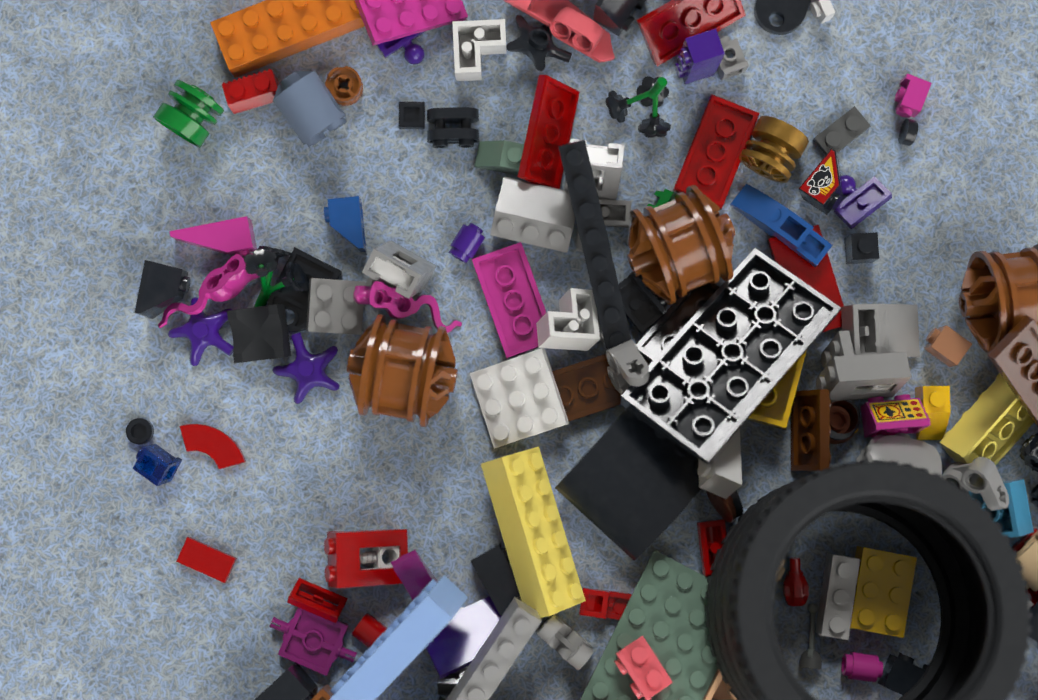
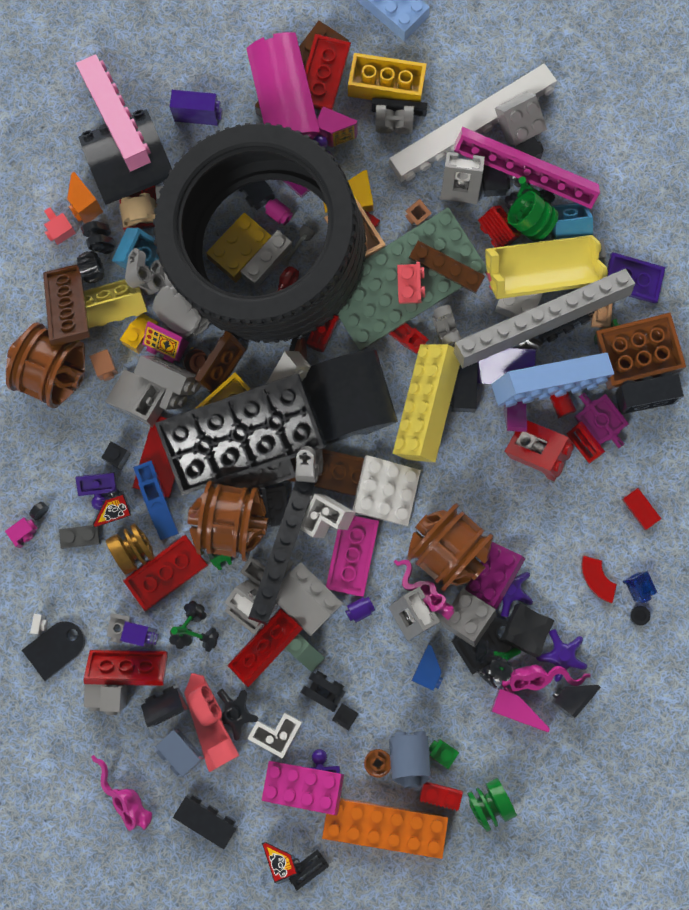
camera: 145 degrees left, 5 degrees down
(278, 141) = (443, 753): none -> green bracket
(327, 374) = (497, 576): none -> magenta plate

